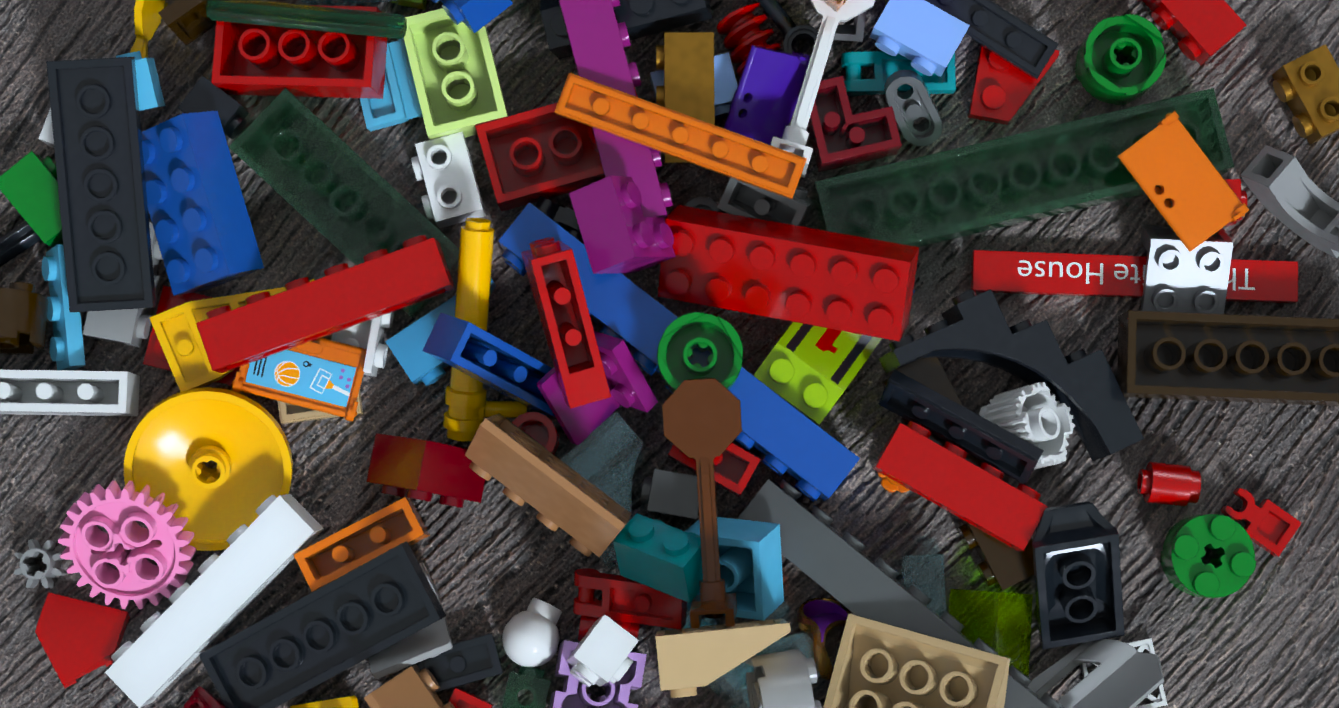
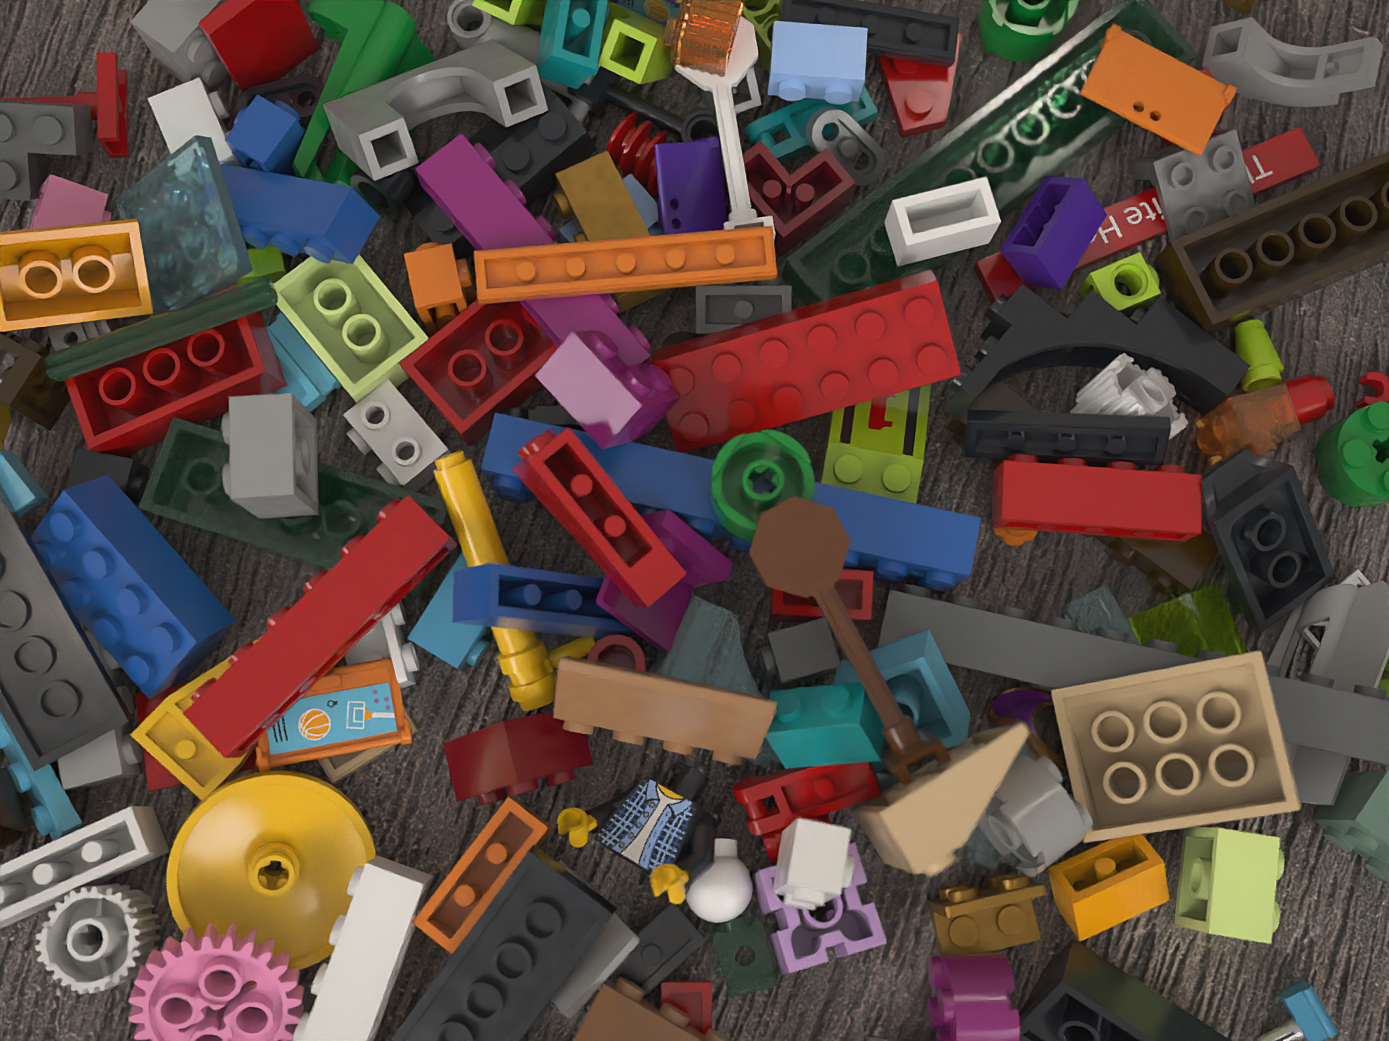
camera: 30 degrees left, 5 degrees down
(50, 474) = (70, 940): none -> white brick
(346, 159) = (271, 455): none -> light grey brick
(502, 573) = (654, 830): none -> torso
(535, 76) = (439, 284): none -> orange brick
(946, 213) = (942, 221): none -> white piece
(1055, 257) = (1053, 232): none -> dark purple brick
(1099, 326) = (1132, 272): none -> lime brick
(1114, 485) = (1247, 422): none -> clear orange brick
(1159, 433) = (1257, 350): none -> lime cone

